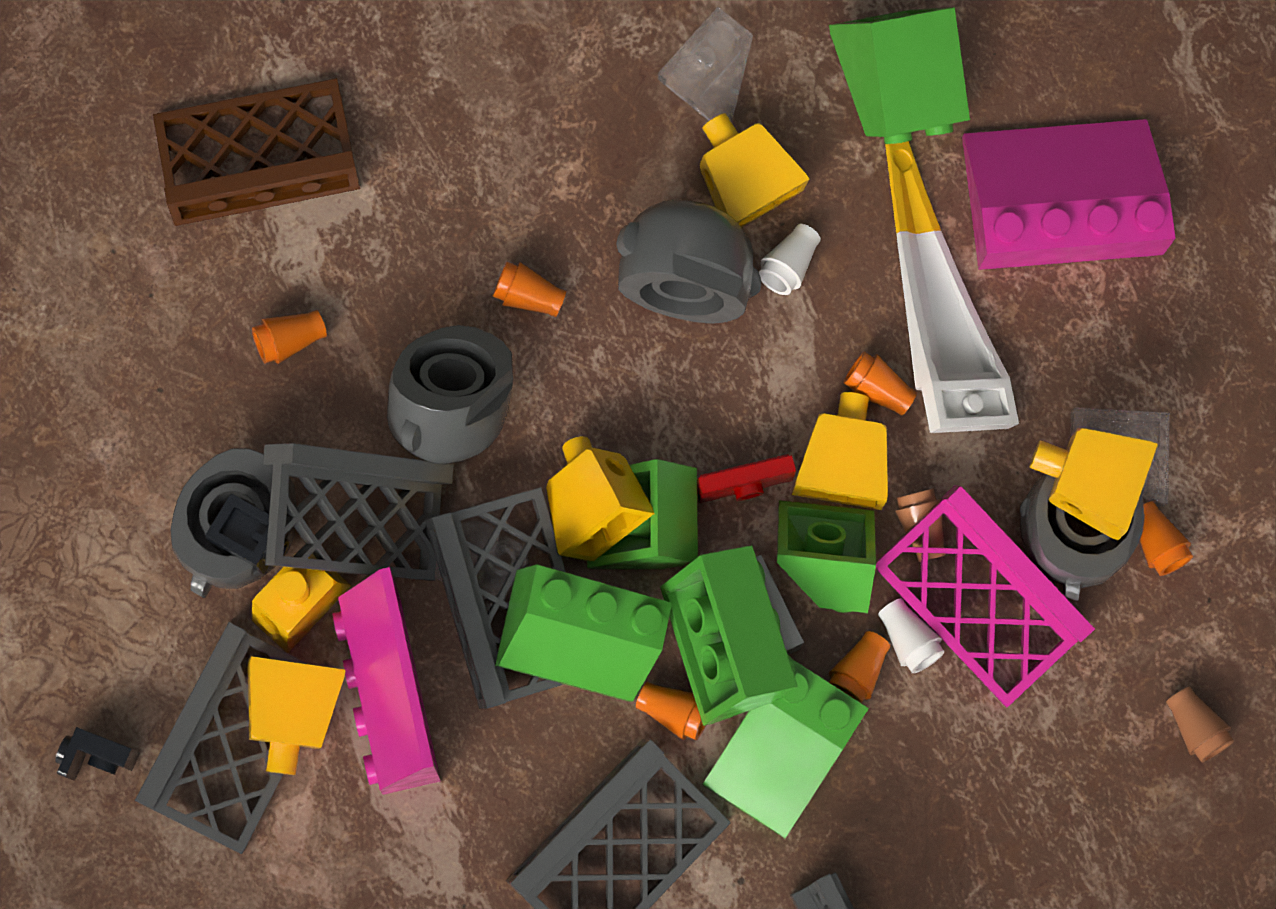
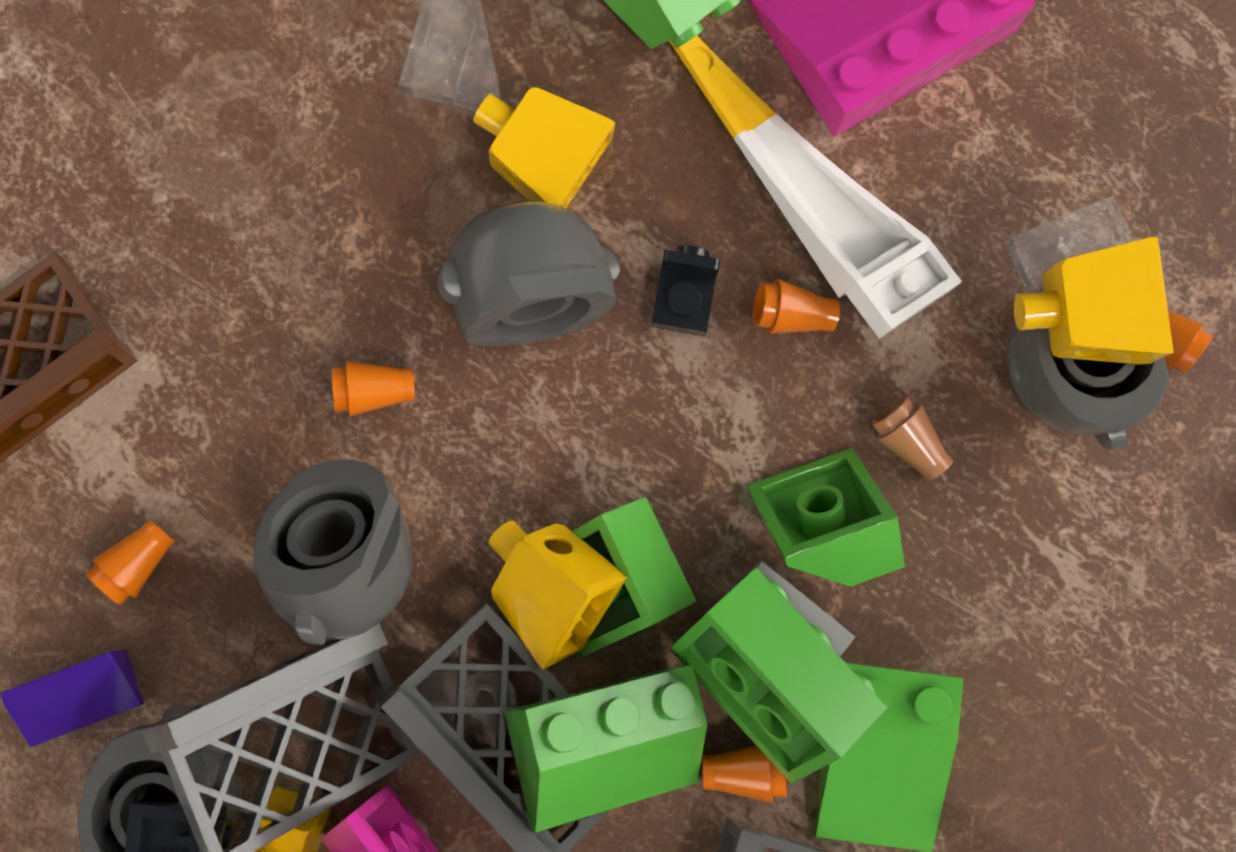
camera: 20 degrees left, 5 degrees up
(198, 414) = (73, 697): none -> dark purple slope
(746, 480) = (705, 482): red plate -> none
(788, 262) = (634, 224): white cone -> none
(803, 331) = (685, 290): none -> black bracket
(846, 457) = (797, 405): yellow torso -> none
(860, 667) = (923, 632): orange cone -> none
(911, 637) = (960, 568): white cone -> none
(1013, 566) = (1035, 440): dark pink fence -> none

